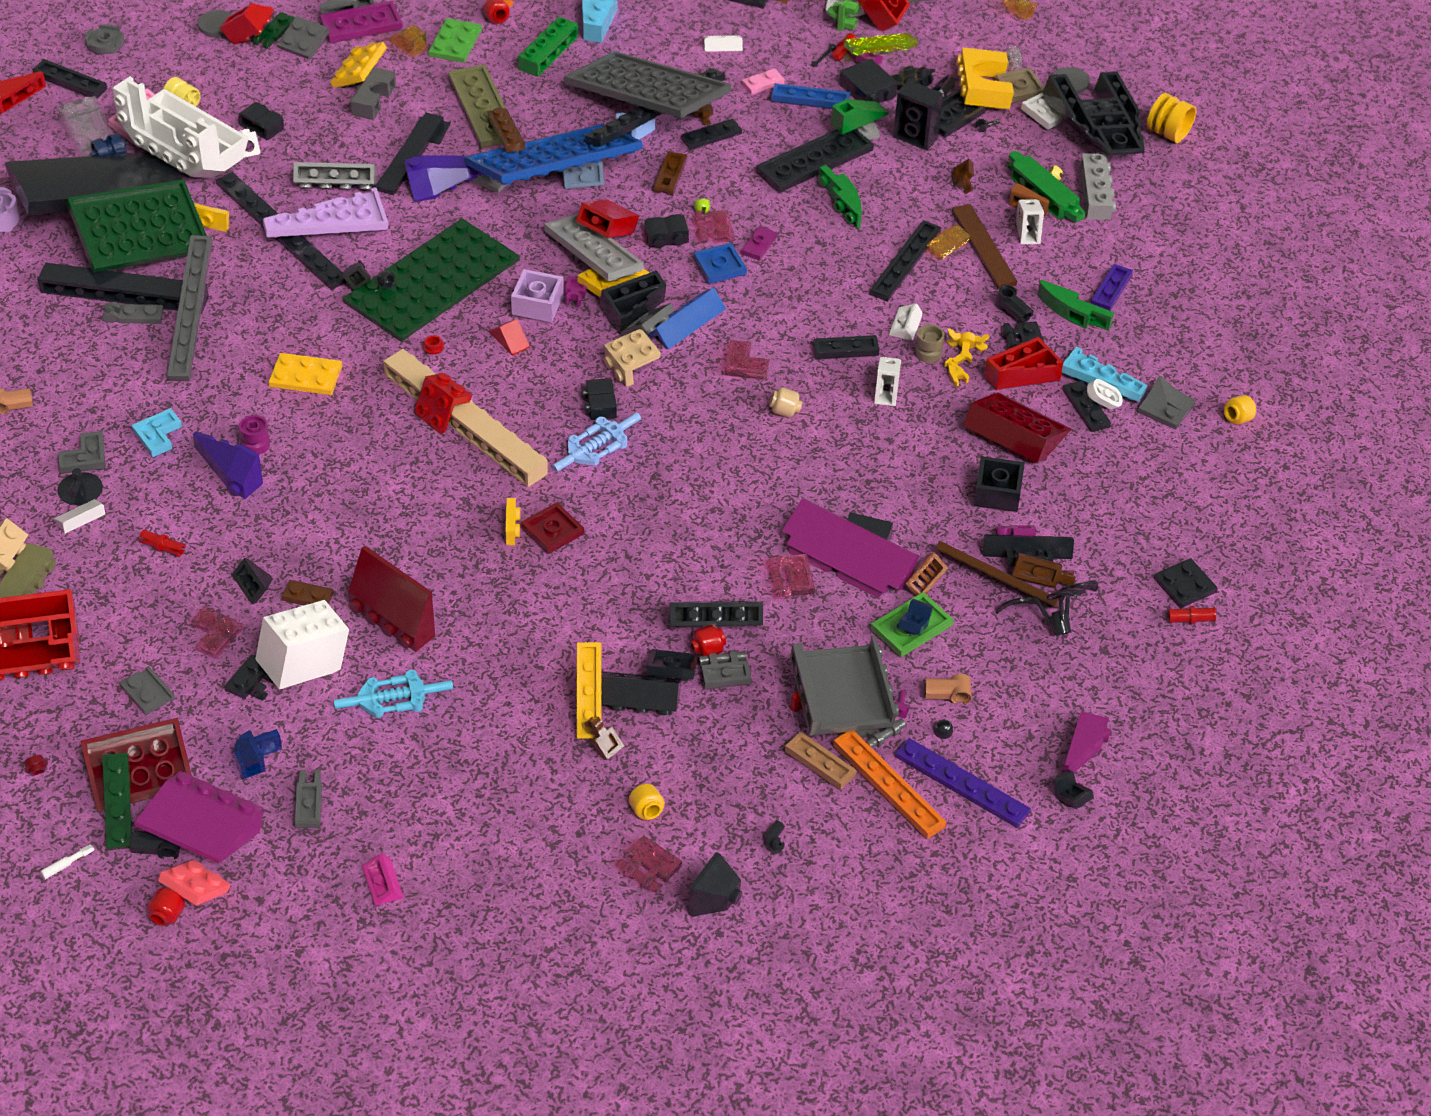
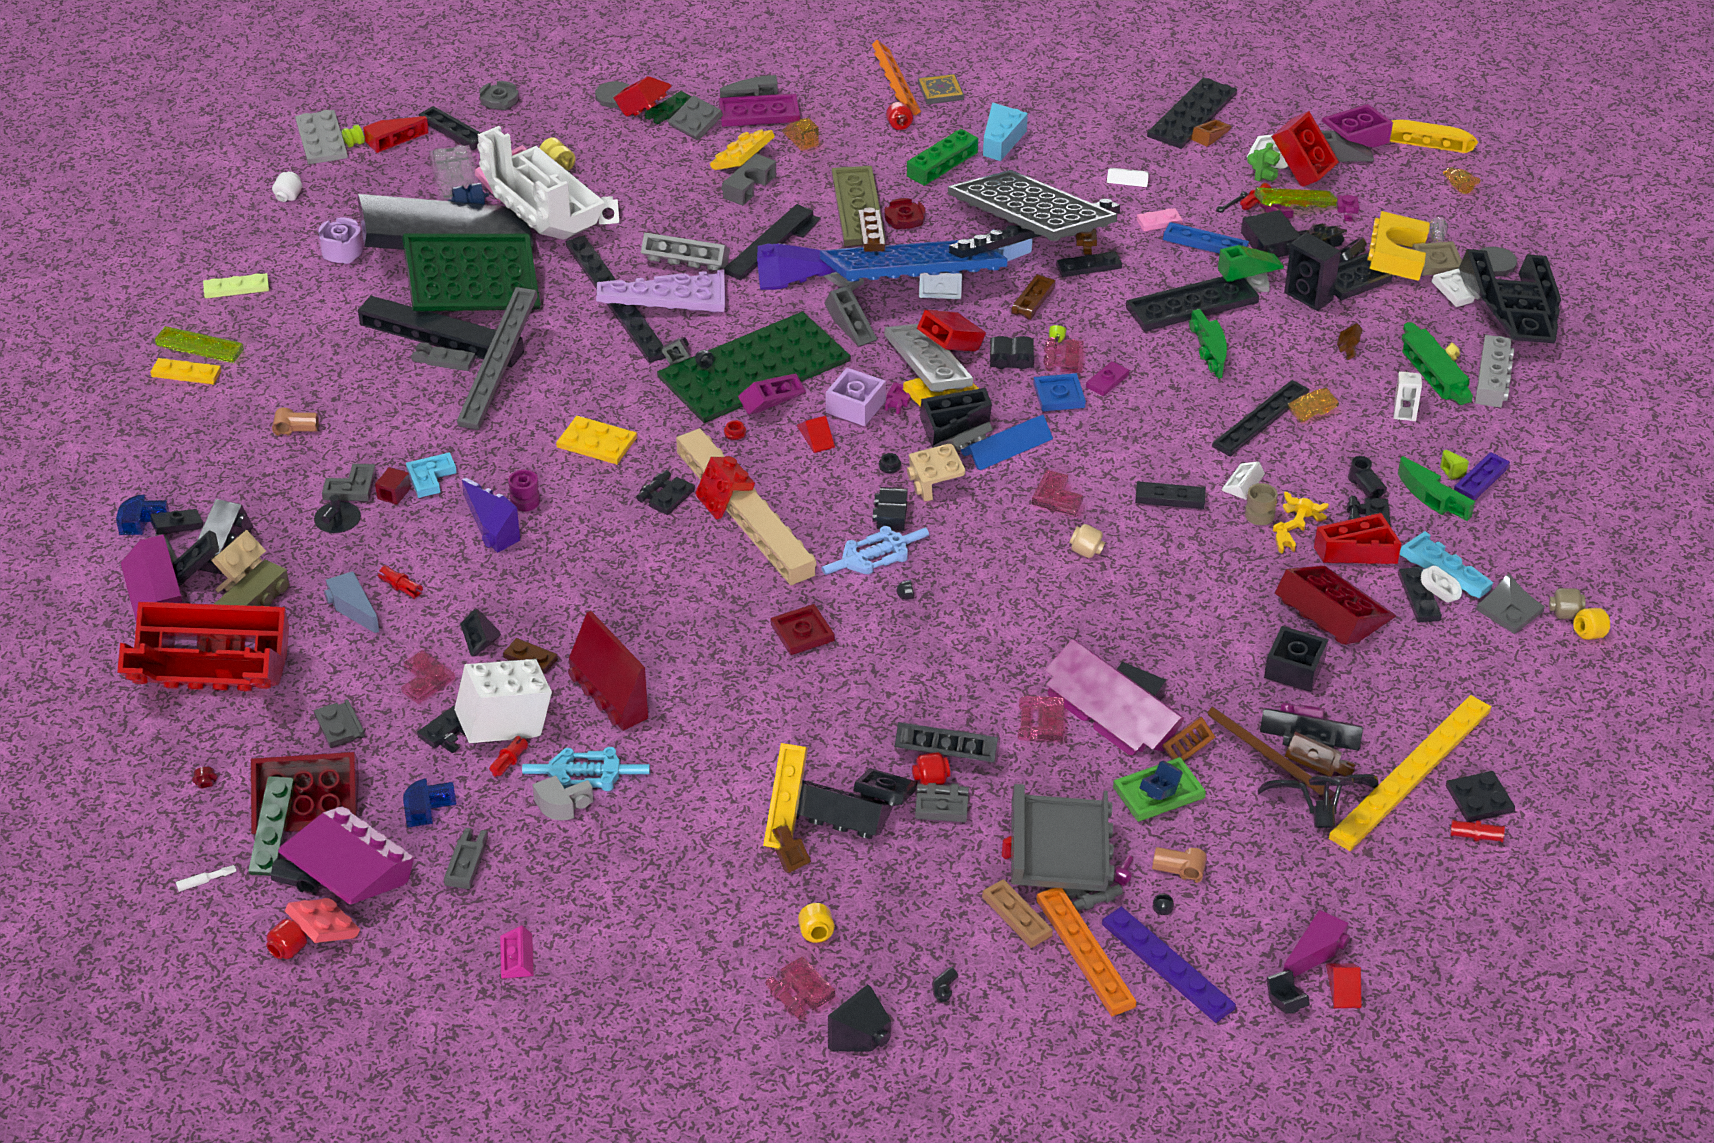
camera: 15 degrees right, 5 degrees down
(80, 515) = (328, 543): white slope -> none
(122, 569) = (350, 600): none -> sand blue slope
(126, 449) = (393, 485): none -> dark red brick
(213, 217) = (550, 276): yellow plate -> none
(261, 120) = (628, 191): black brick -> none
(318, 695) = (508, 756): none -> red axle
(377, 730) = (560, 802): none -> light grey brick
(392, 418) = (671, 495): none -> black plate
(455, 40) = (849, 139): bright green plate -> none
(457, 304) = (770, 392): none -> magenta slope
(507, 217) = (849, 316): none -> dark grey slope
(512, 515) = (759, 620): yellow plate -> none
(537, 108) = (913, 215): none -> dark red plate
(585, 355) = (889, 463): none -> black plate
(634, 474) = (905, 590): none -> black hinge
(887, 374) = (1204, 526): white torso -> none
(927, 44) = (1348, 205): none -> magenta plate
(983, 124) = (1385, 294): black hand -> none
(984, 246) = (1351, 414): reddish brown tile -> none
(1020, 192) = (1405, 364): dark orange slope -> none
(1085, 280) = (1453, 465): none -> lime slope
(1117, 773) = (1345, 984): none -> red slope
(1121, 572) = (1409, 773): none -> yellow plate
(1171, 117) = (1595, 311): yellow wheel -> none
(1215, 394) = (1567, 603): none -> dark tan head

